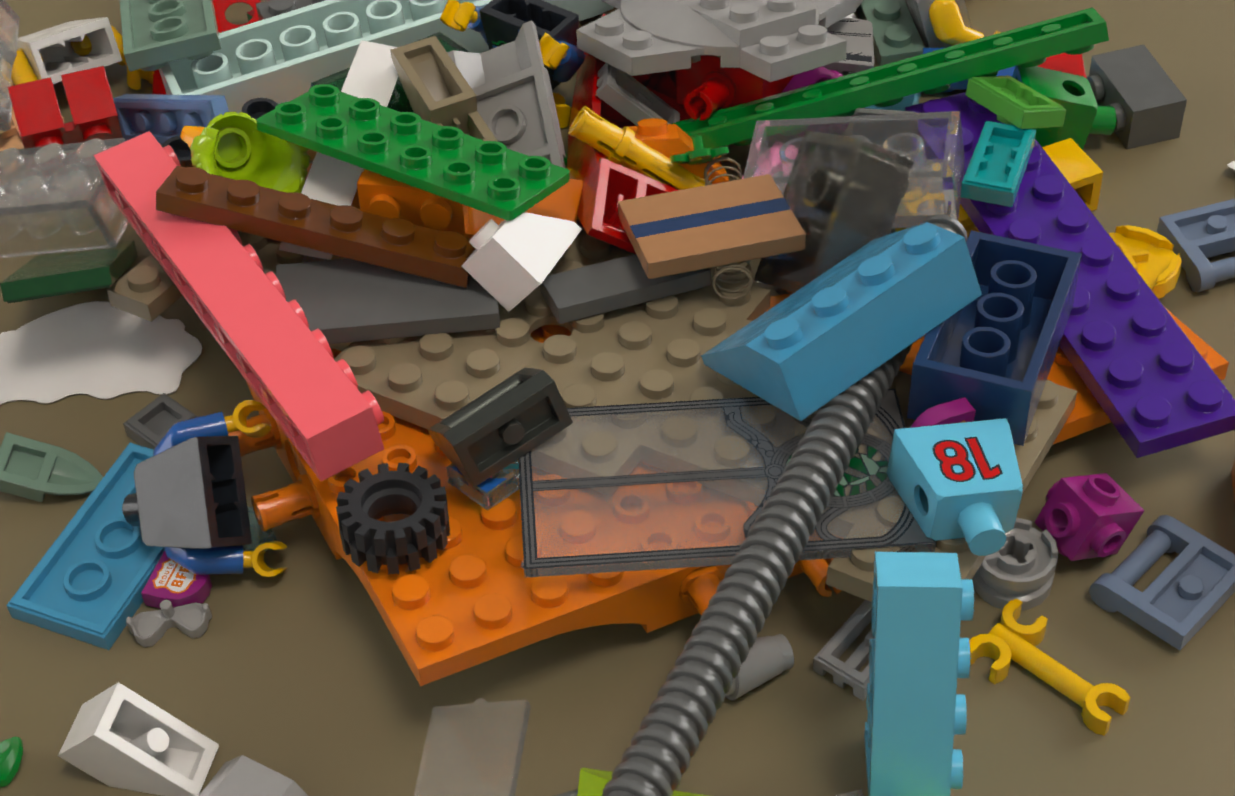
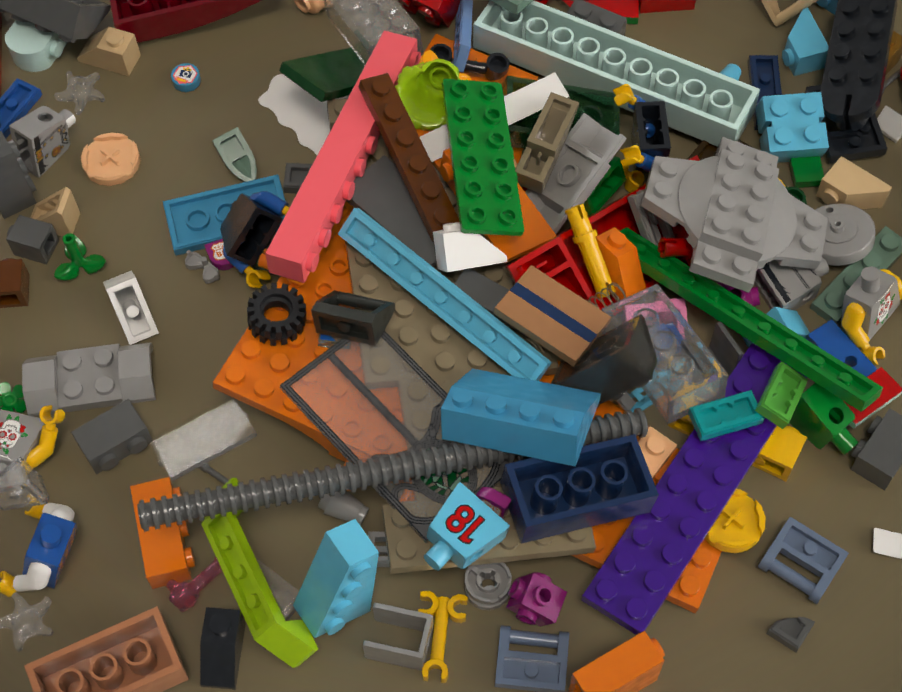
camera: 50 degrees right, 15 degrees up
(558, 319) = (443, 297): none -> medium azure plate
(699, 154) = (612, 274): green plant -> none
(1010, 676) = (402, 618): none -> light grey piece

